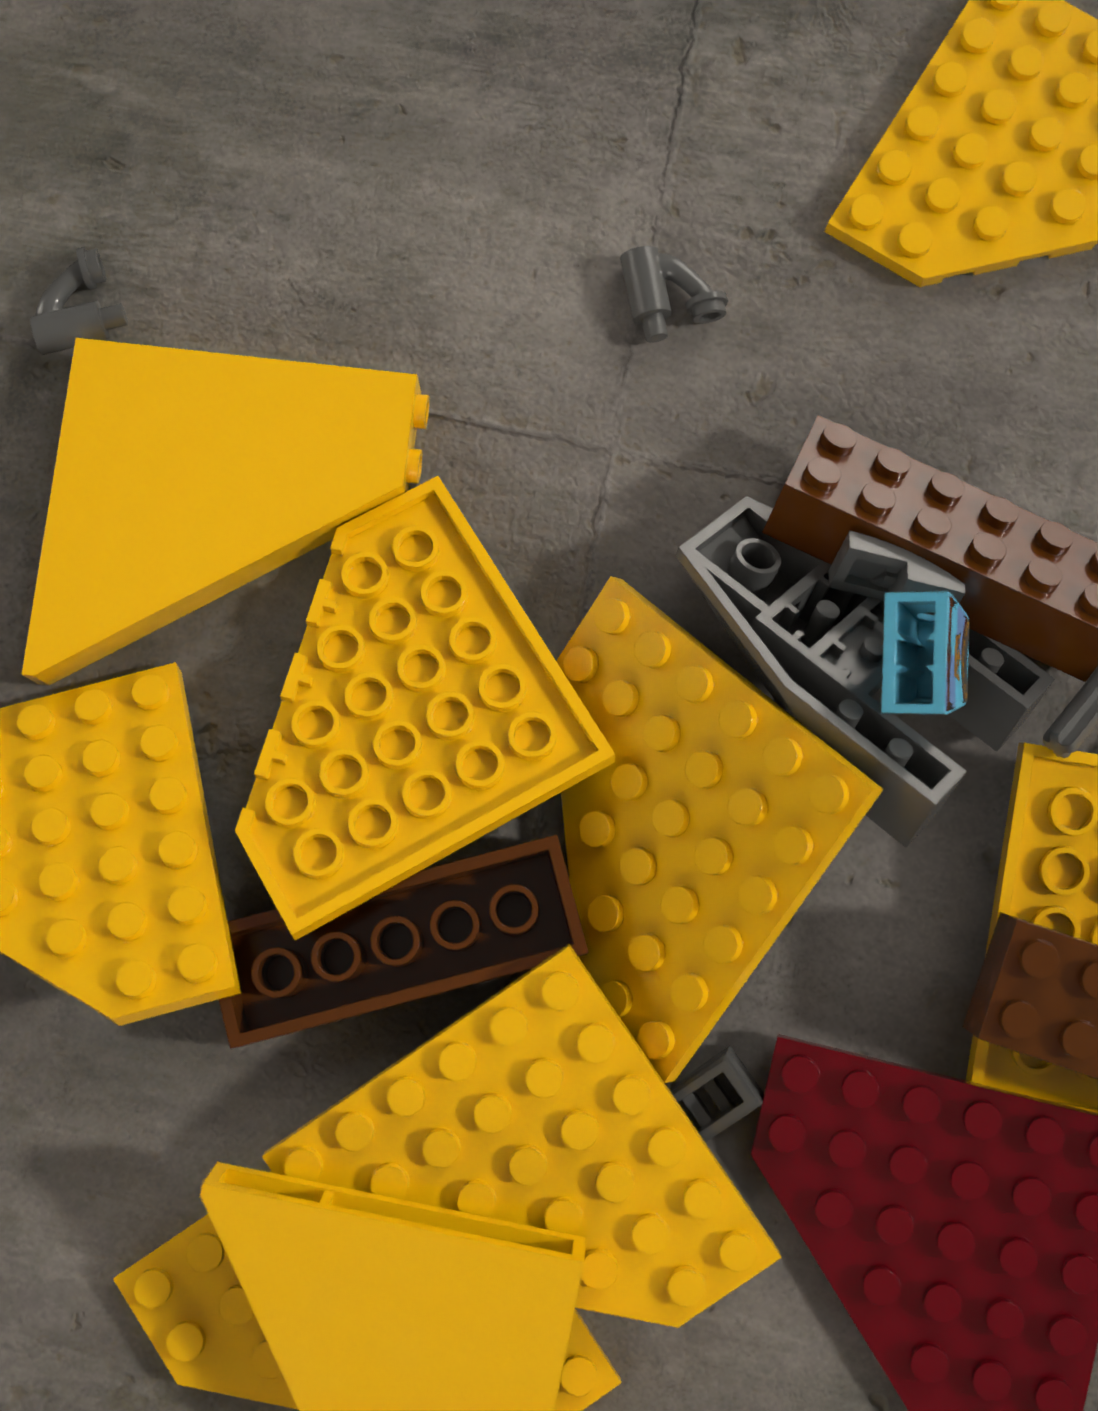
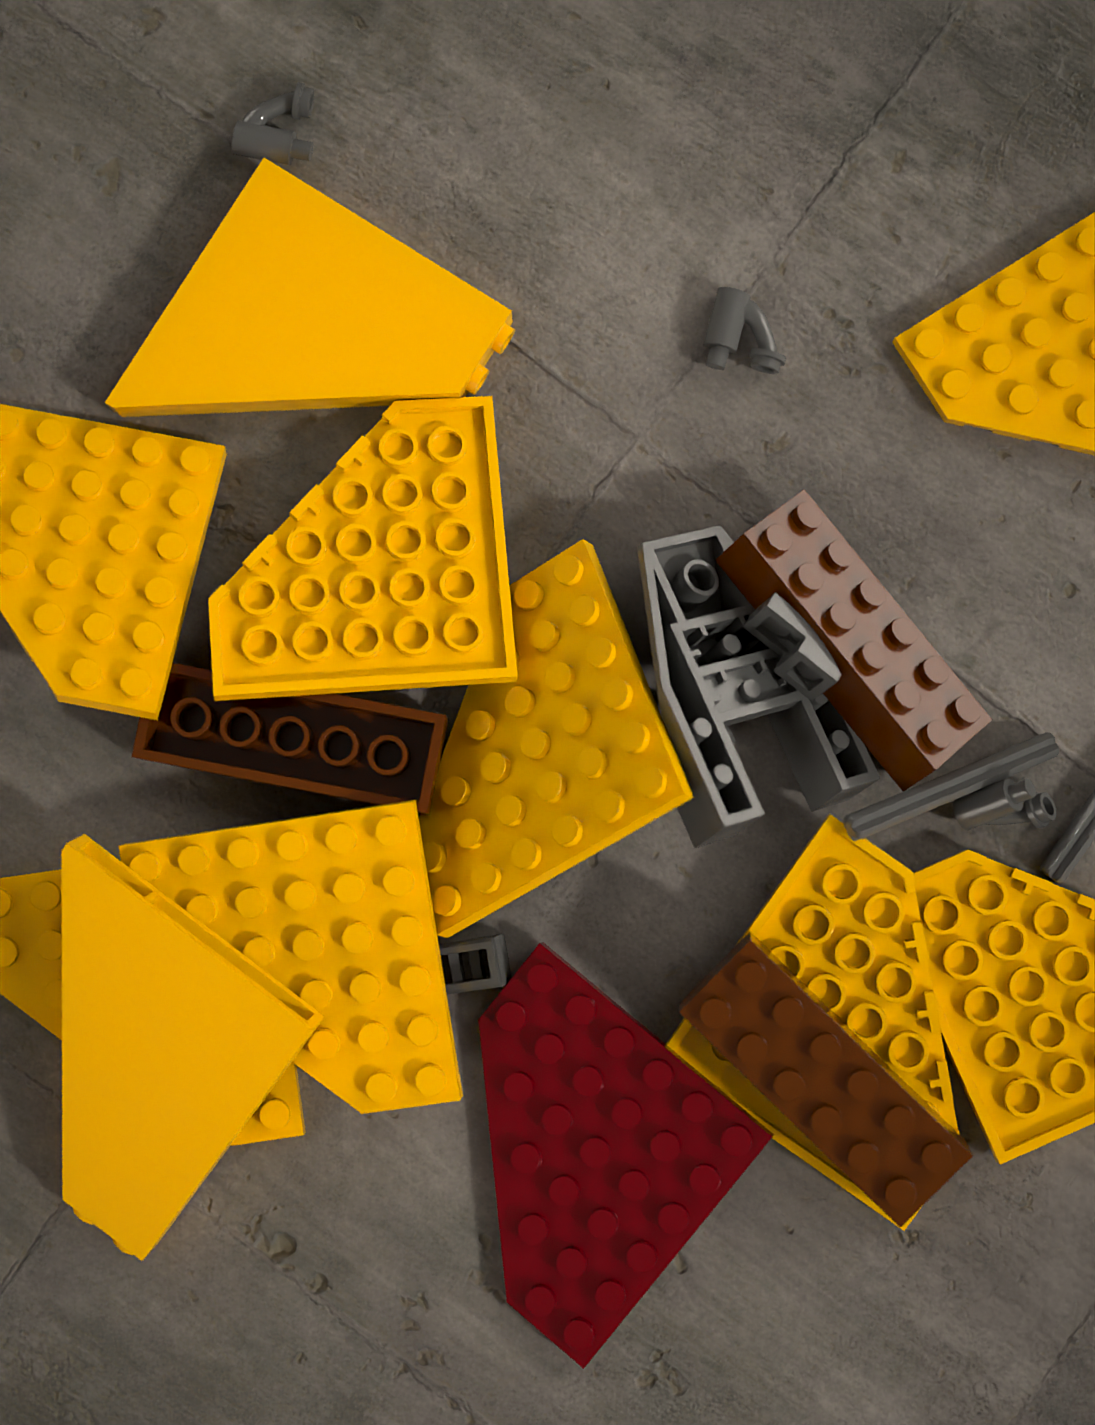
camera: 25 degrees right, 5 degrees up
(924, 653) = (777, 714): medium azure torso -> none

